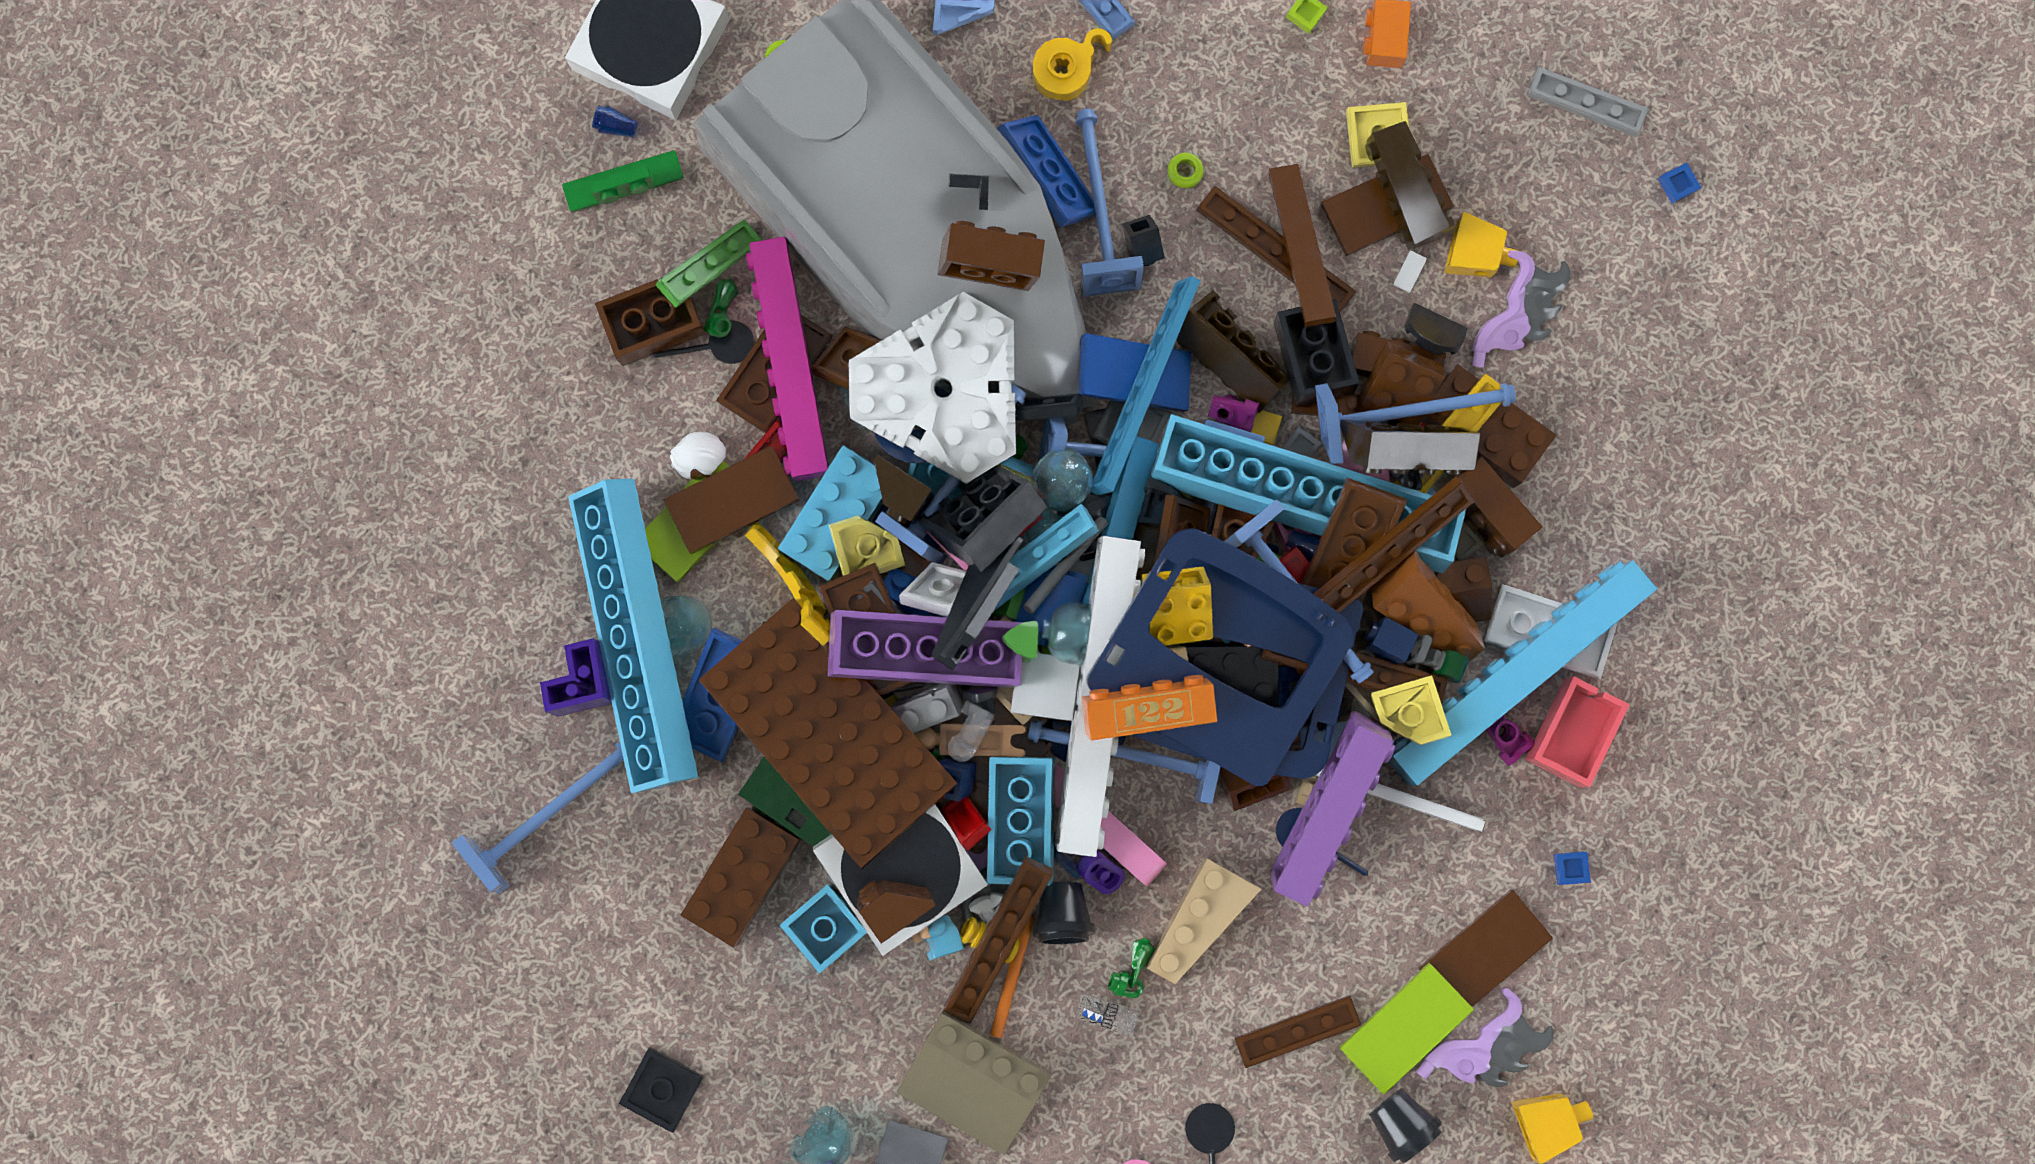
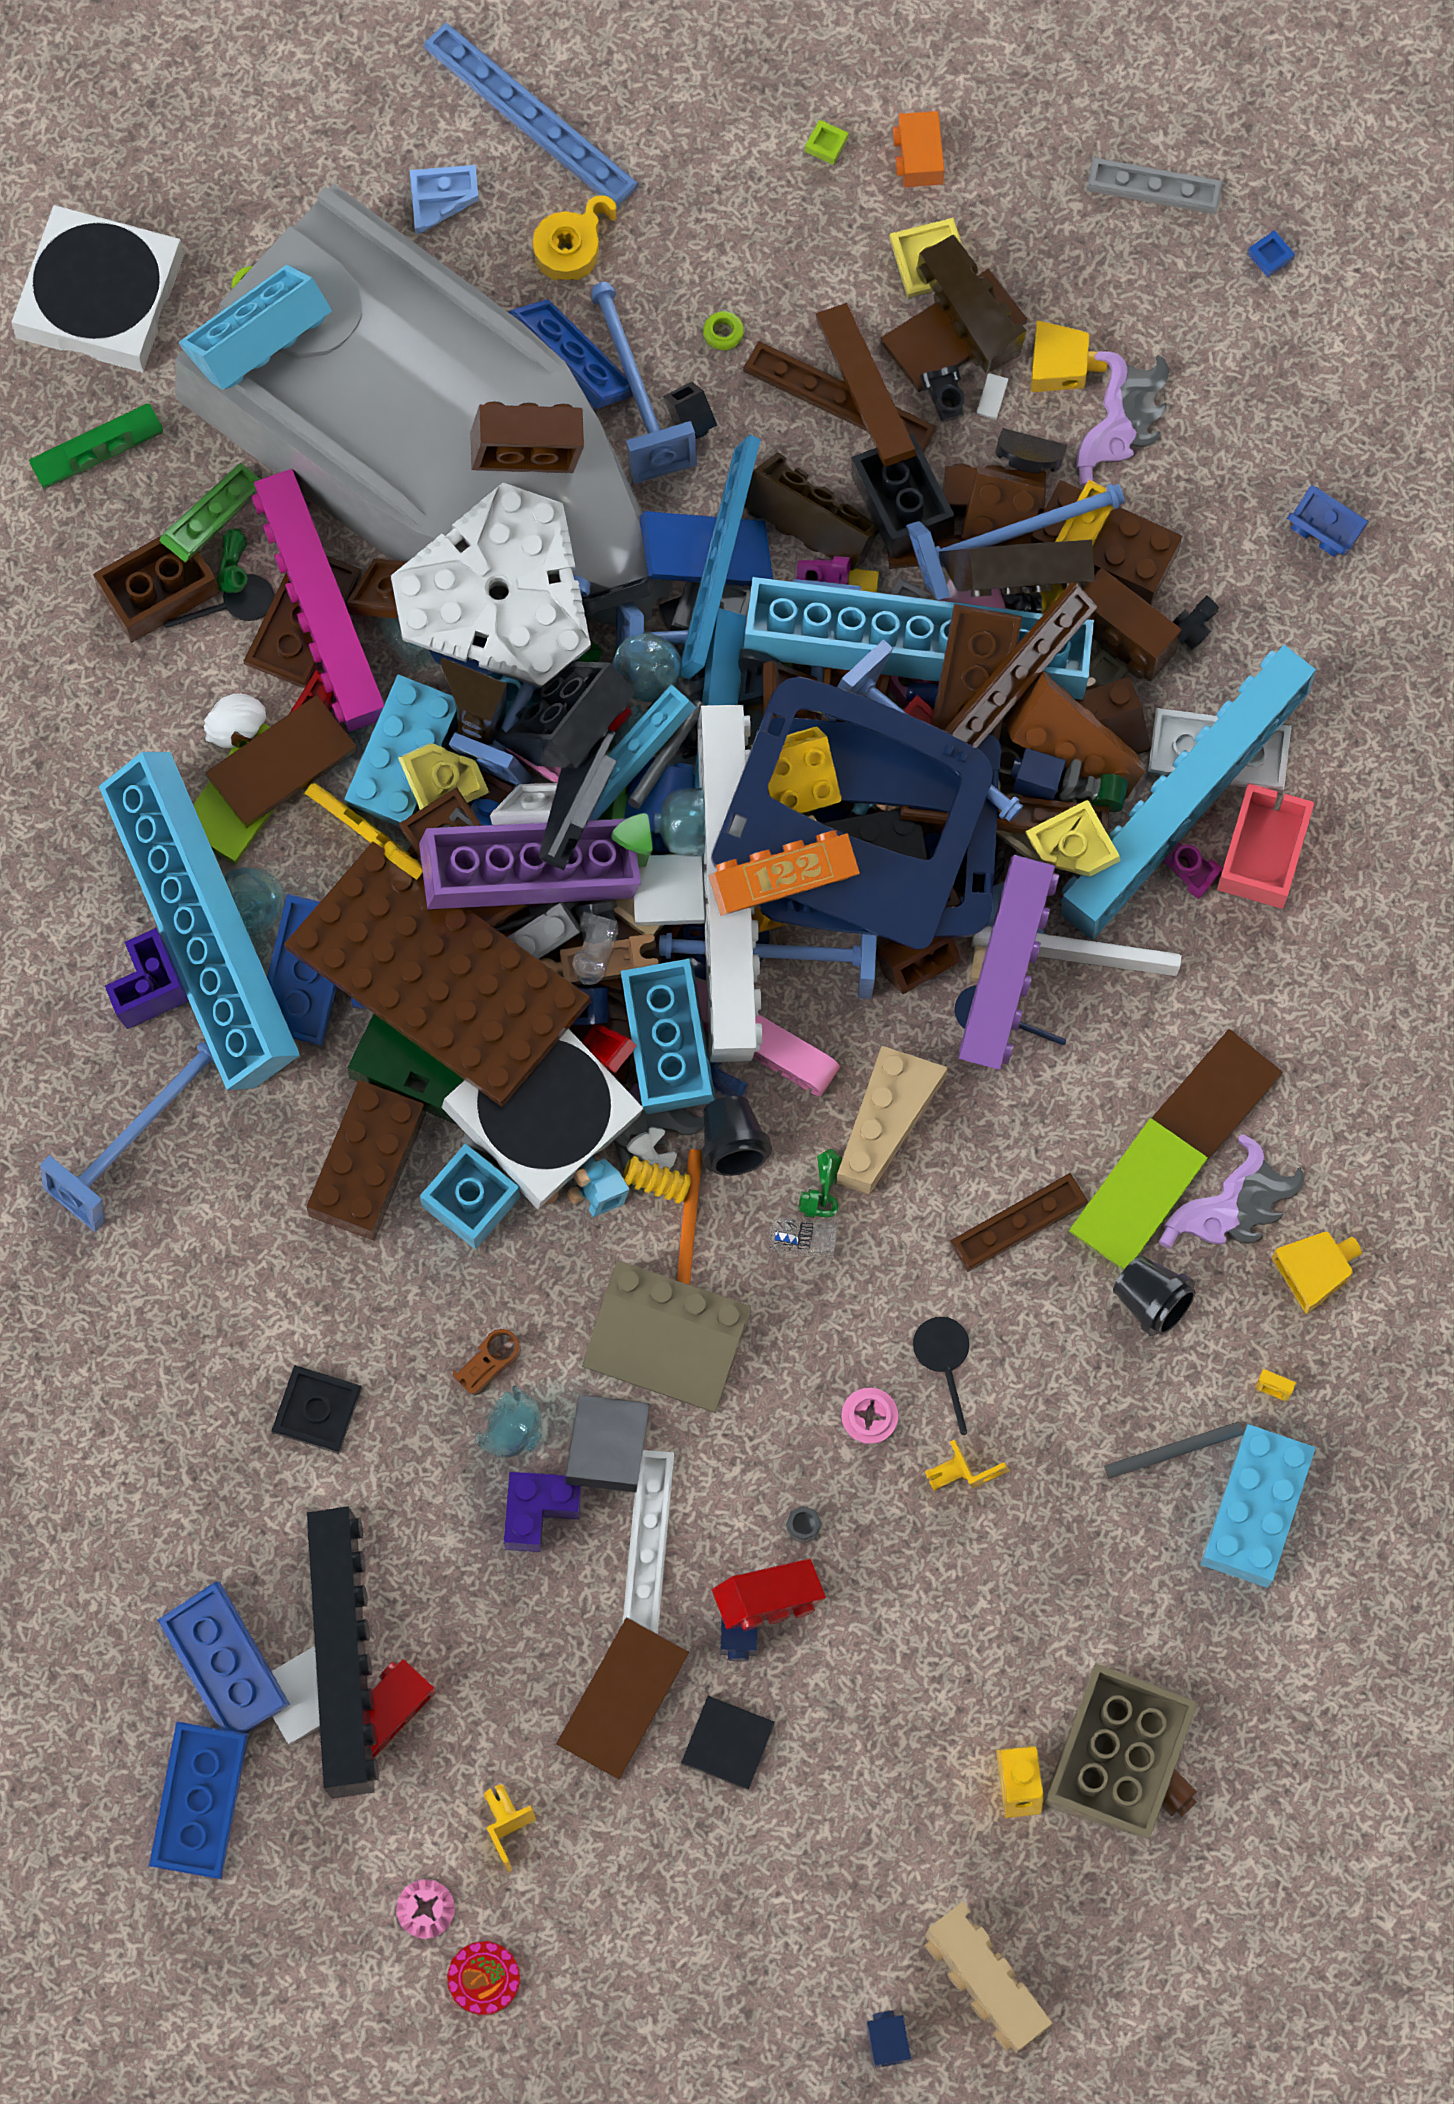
camera: 10 degrees left, 10 degrees down
(613, 122) = (75, 384): clear blue cone -> none
(768, 107) = (256, 327): none -> medium azure slope
(812, 1077) = (486, 1367): none -> dark orange piece
(892, 906) = (541, 1127): reddish brown slope -> none
(972, 181) = (492, 367): black tile -> none
(998, 939) = (666, 1167): reddish brown tile -> none
(1101, 873) = (767, 1083): dark purple plate -> none
(1370, 255) = (944, 385): none -> black plate
(1549, 513) = (1193, 625): none -> black plate
(1572, 868) = (1289, 994): blue plate -> none
(1684, 440) = (1328, 521): none -> blue bracket

